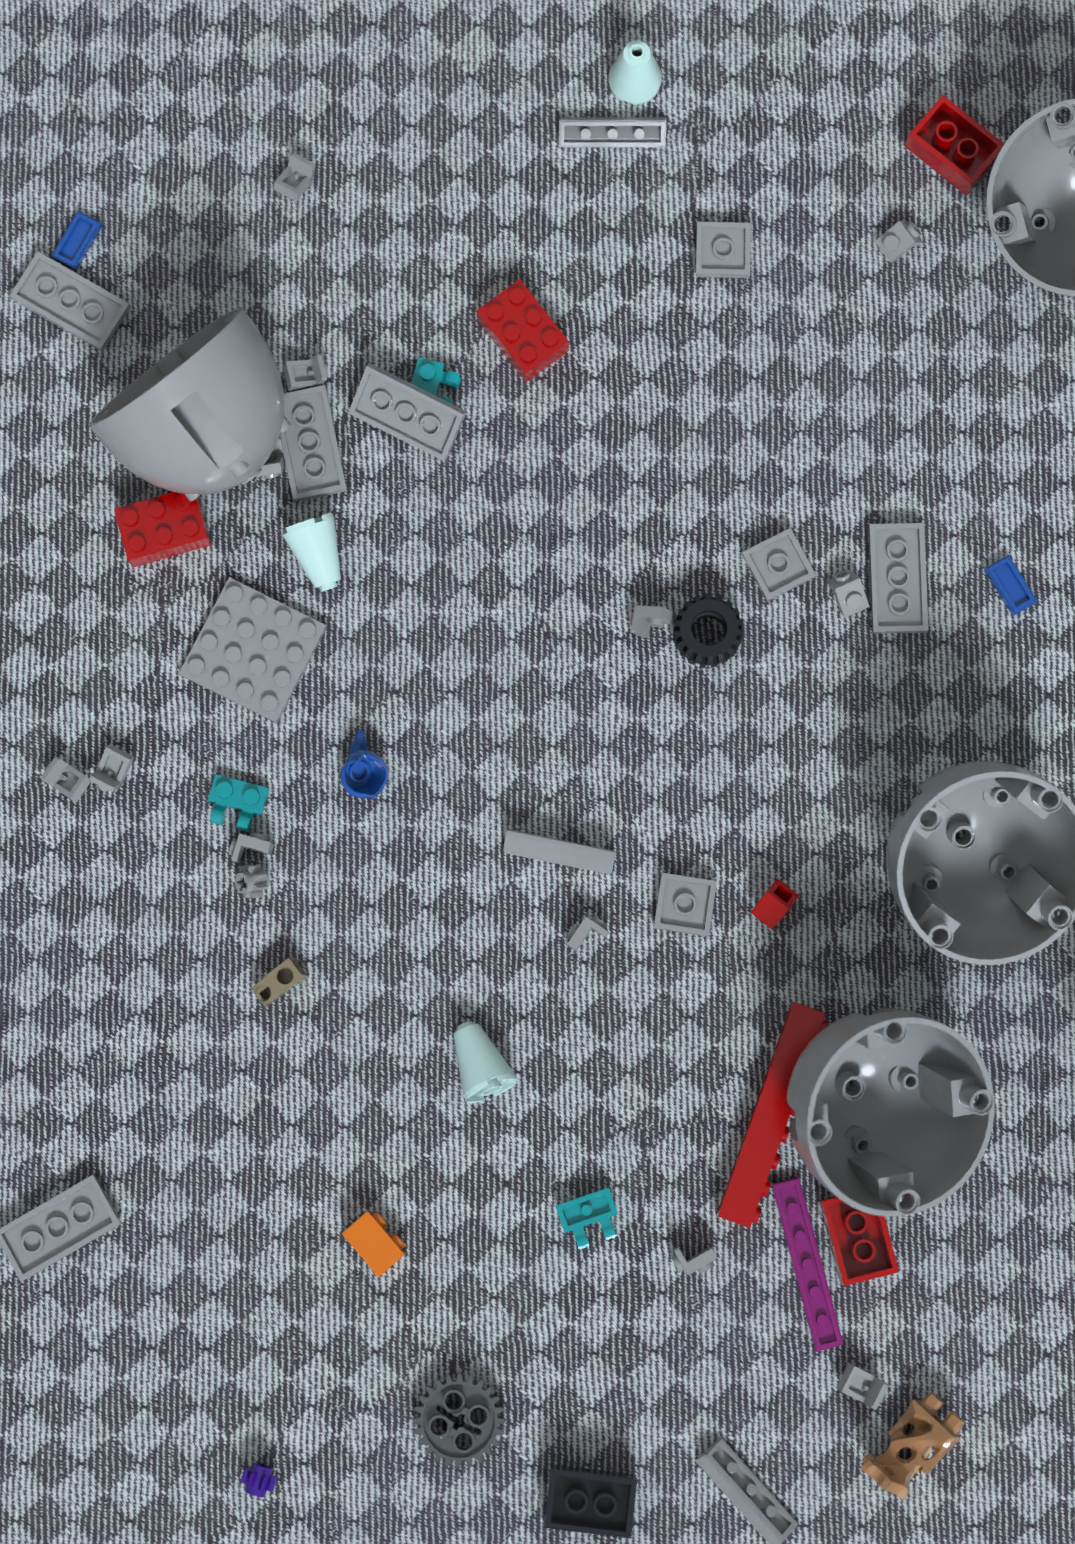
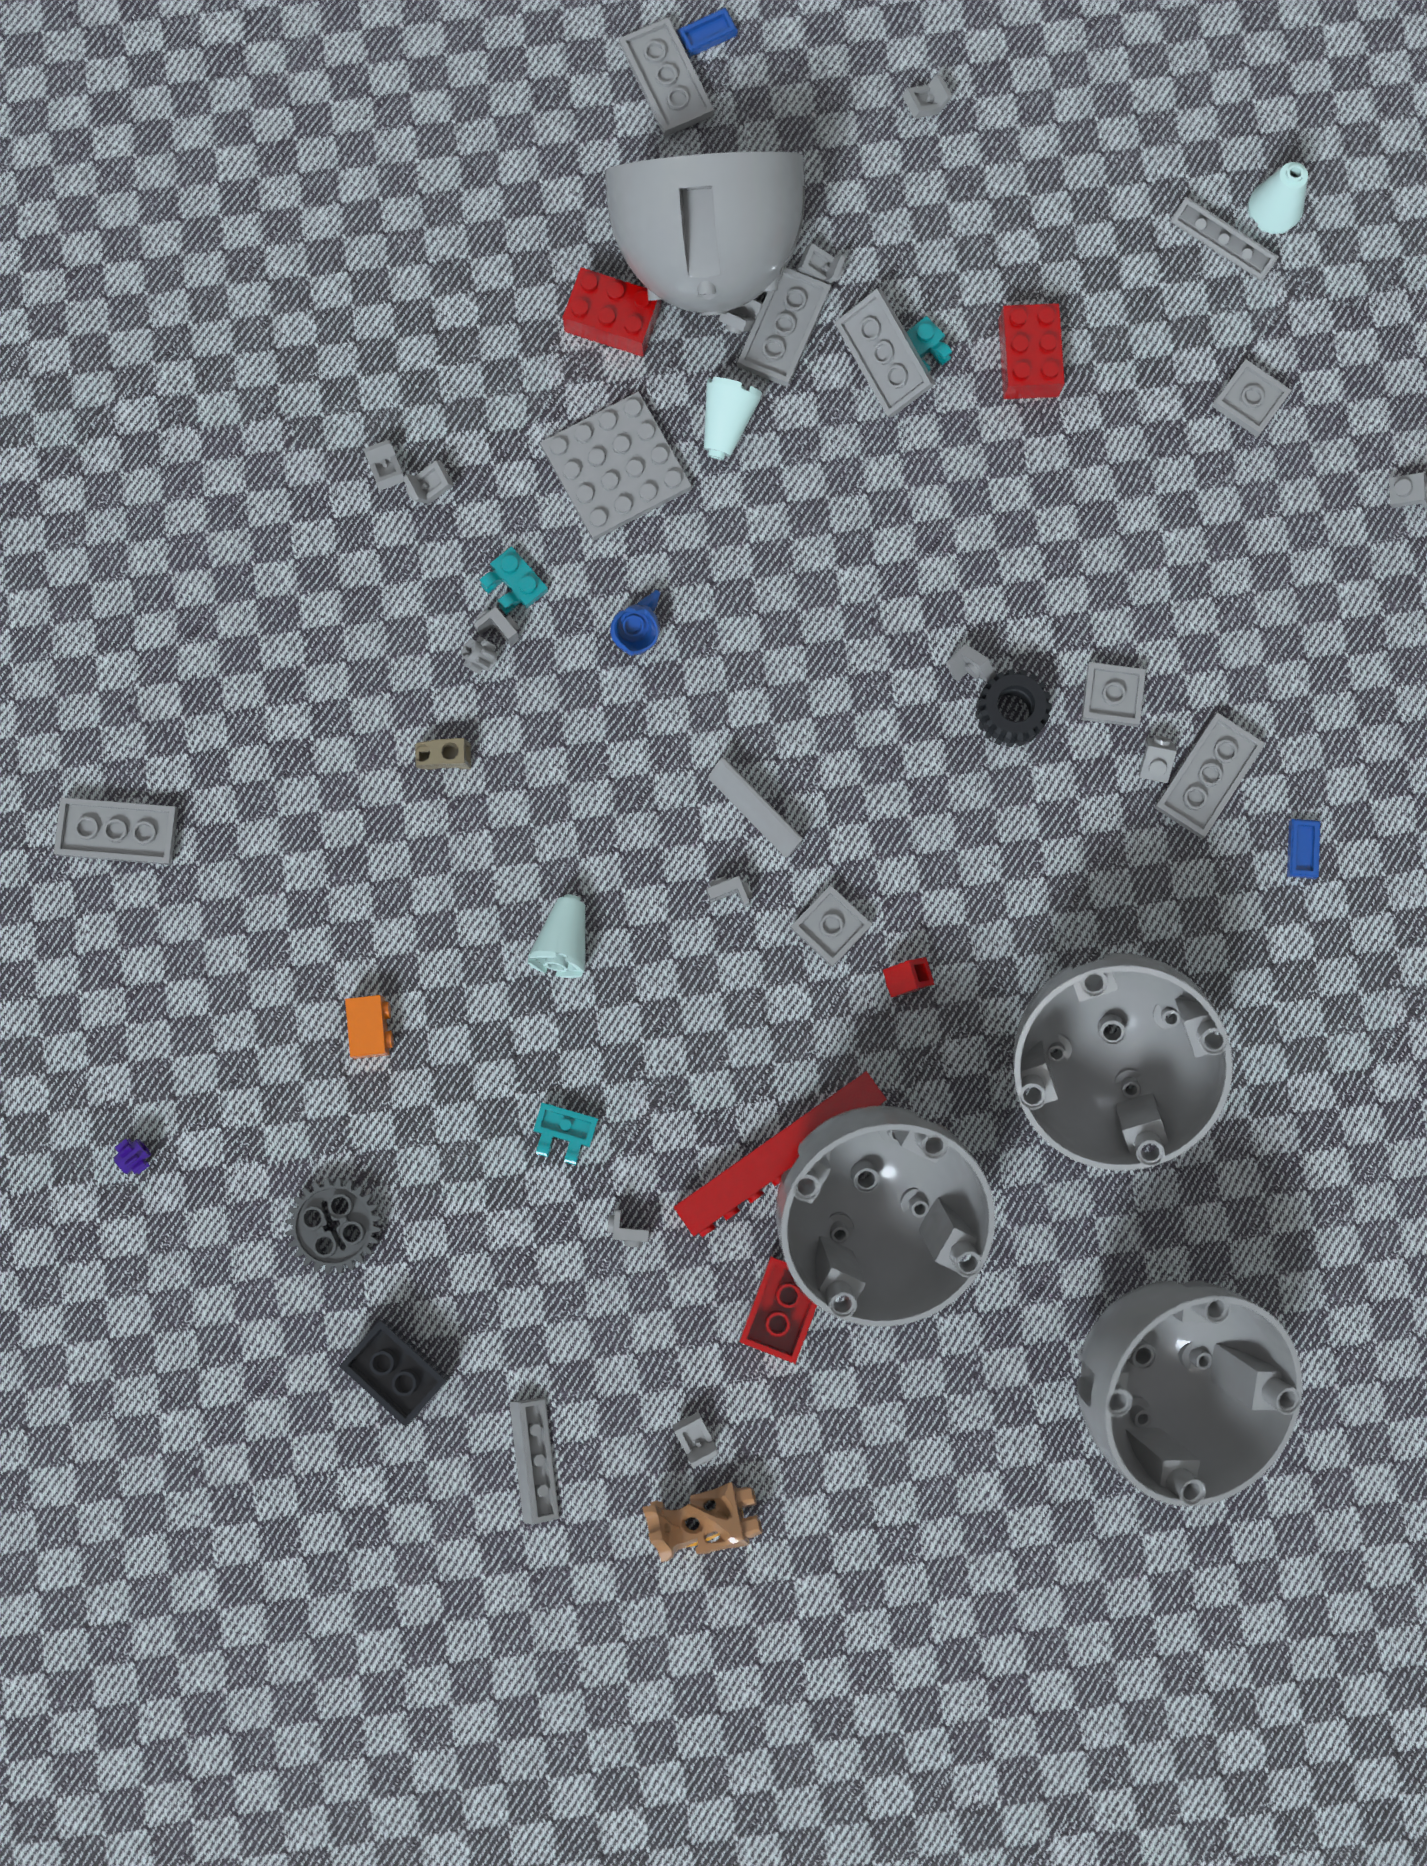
camera: 30 degrees right, 0 degrees up
(807, 1264) = (721, 1303): magenta tile -> none

